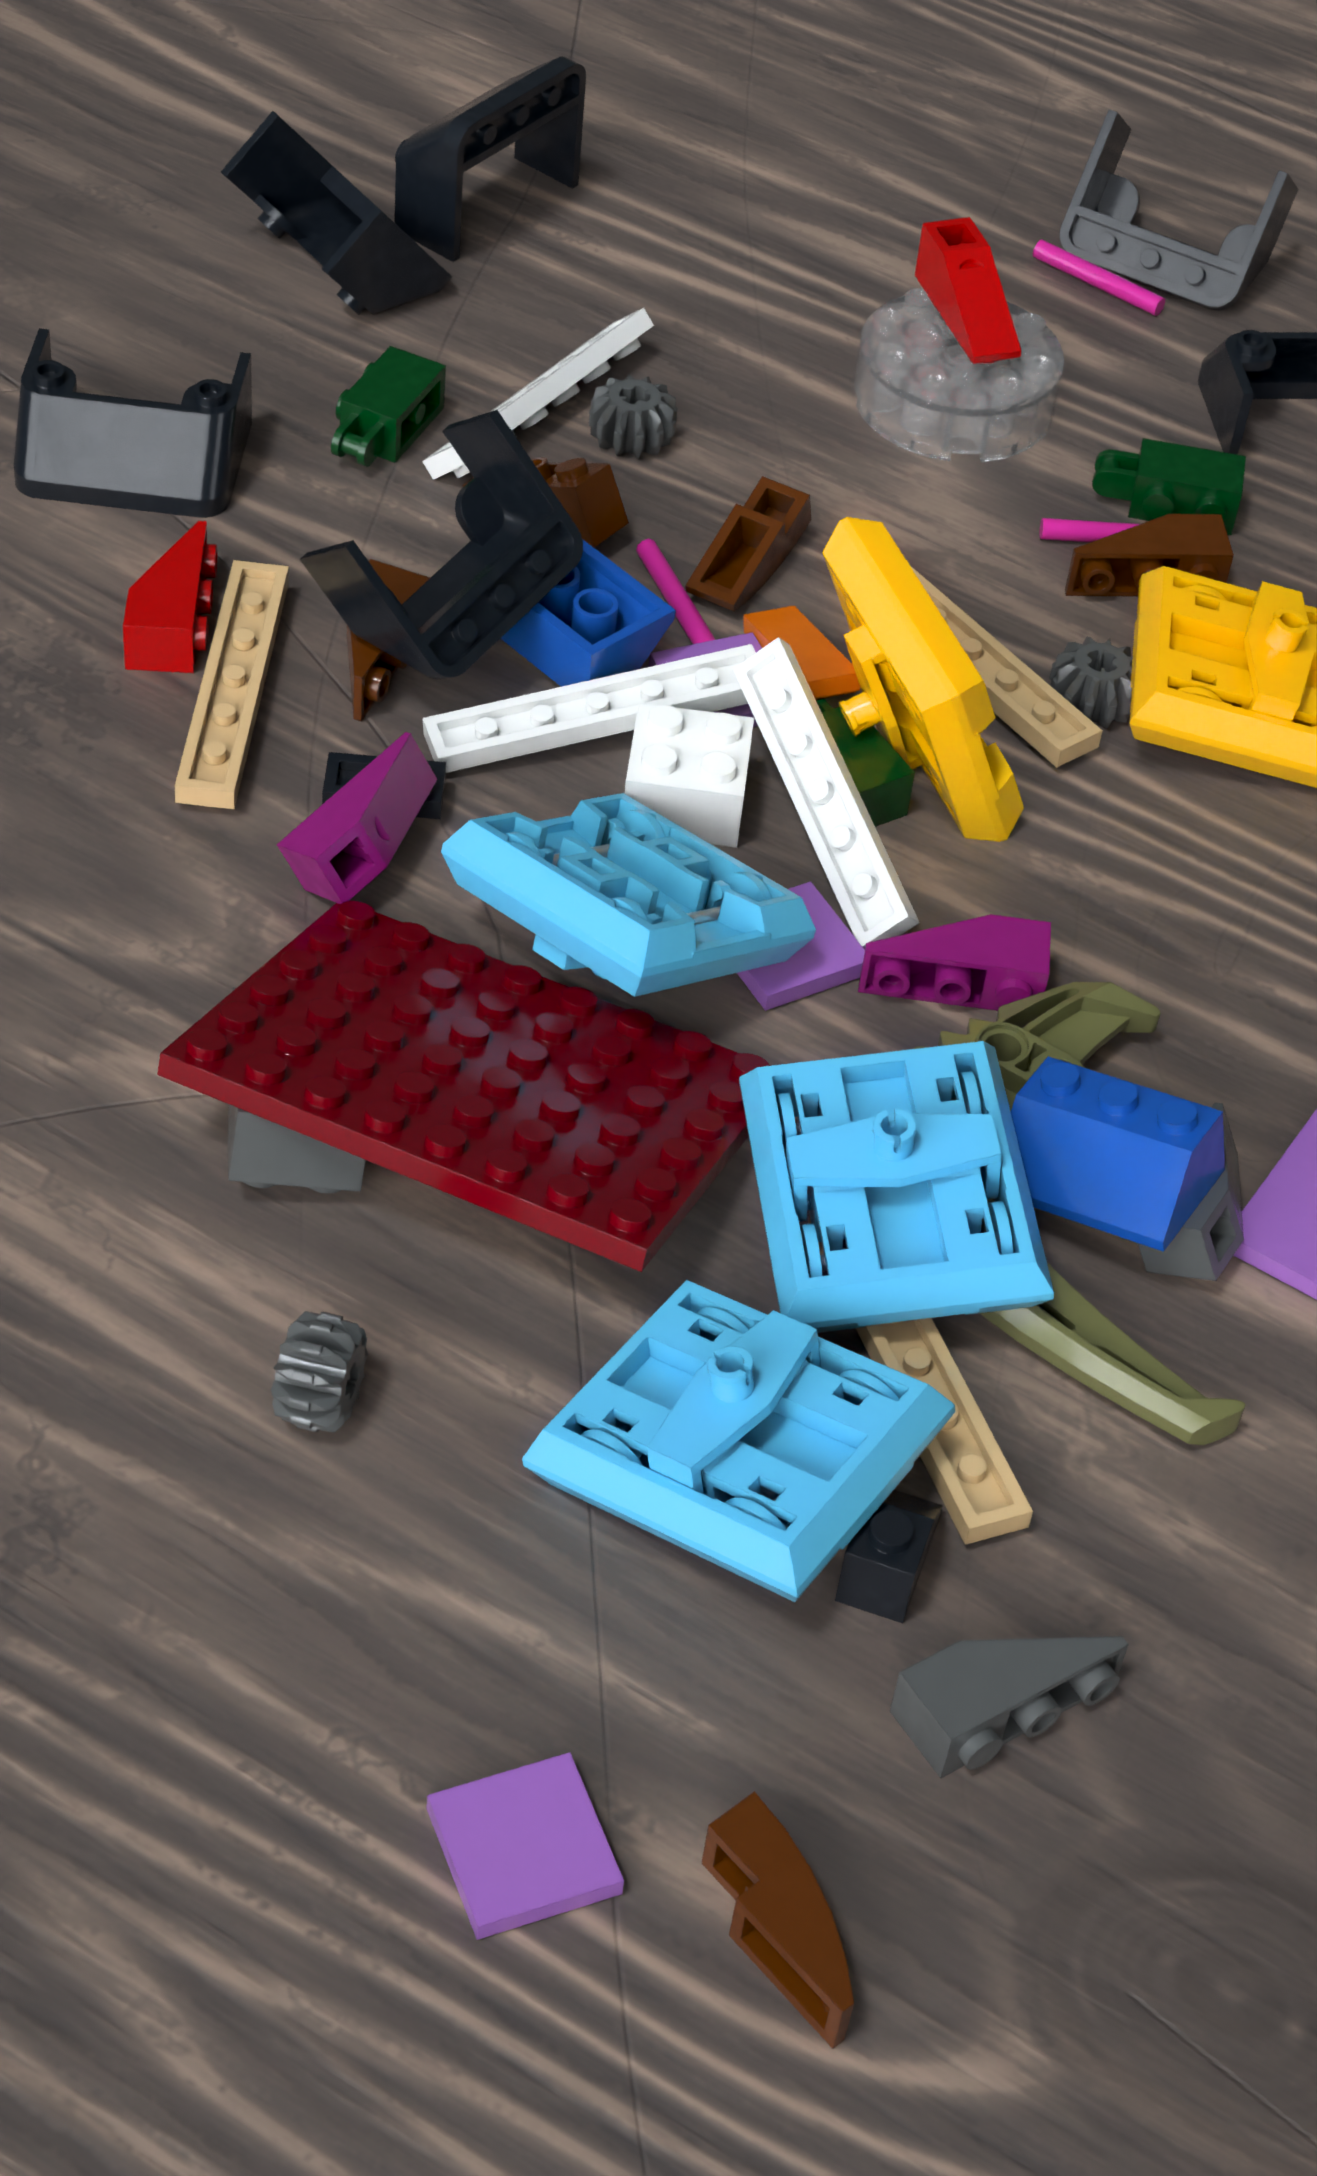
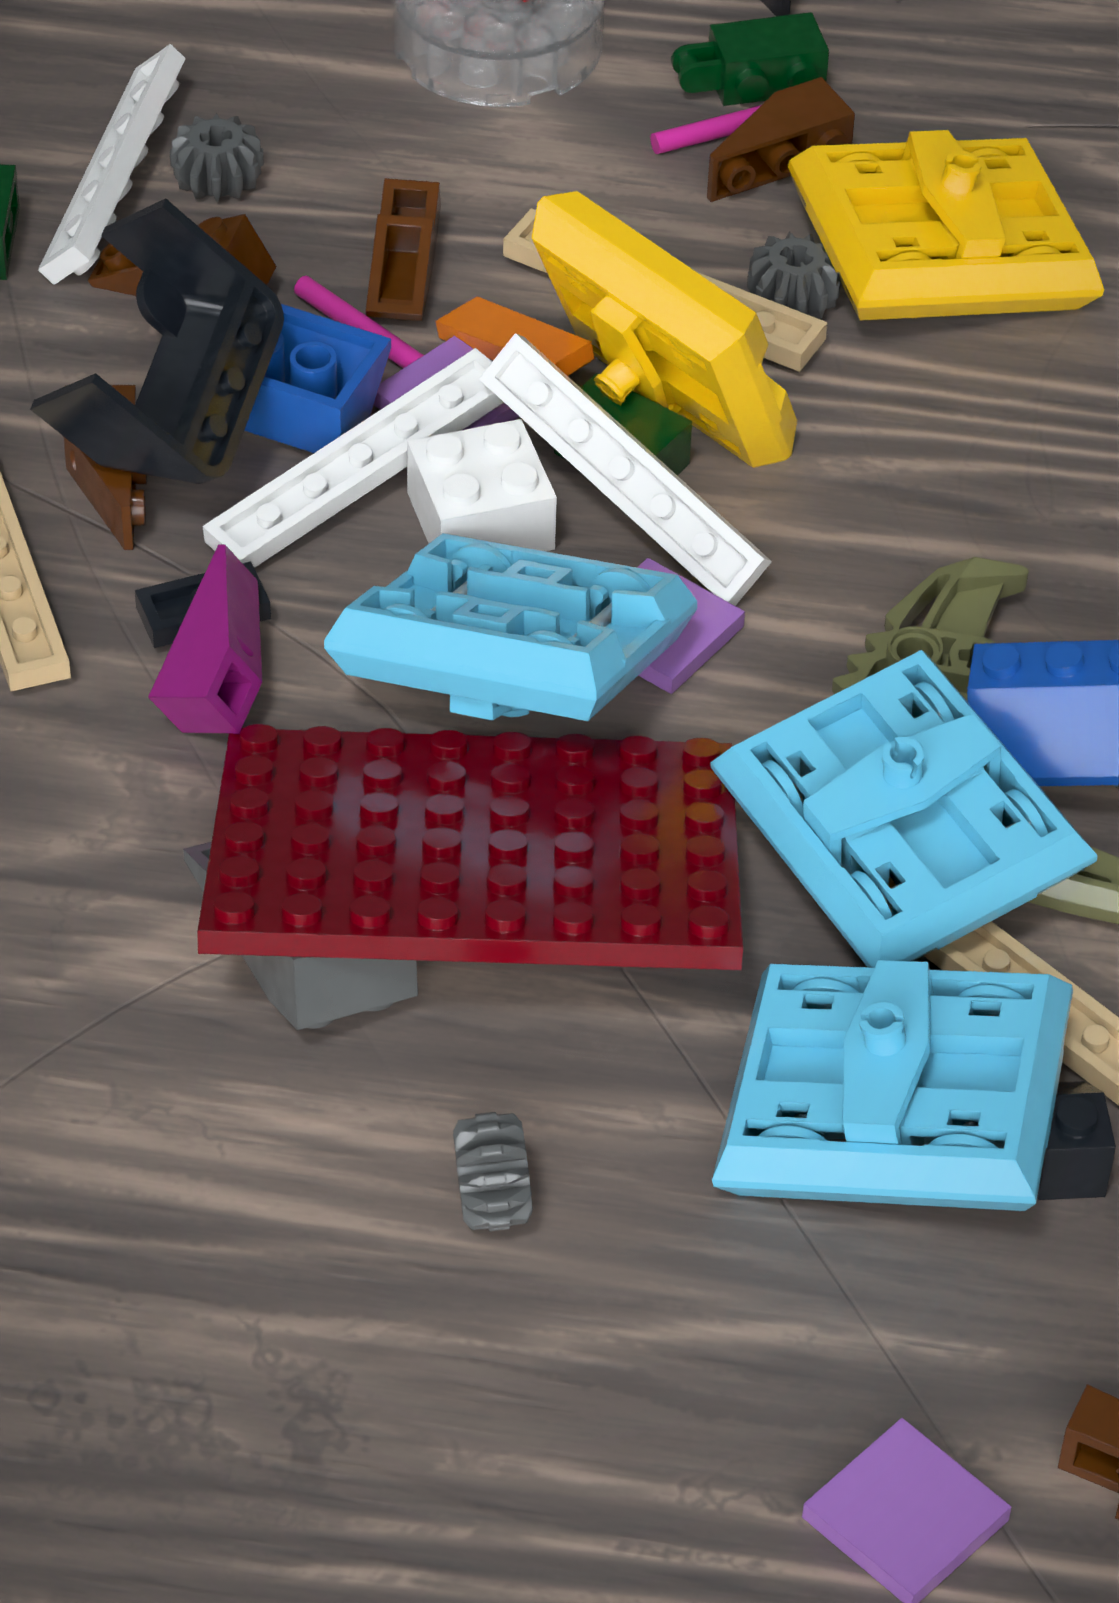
camera: 20 degrees left, 0 degrees up
(962, 963) = (835, 584): magenta slope -> none

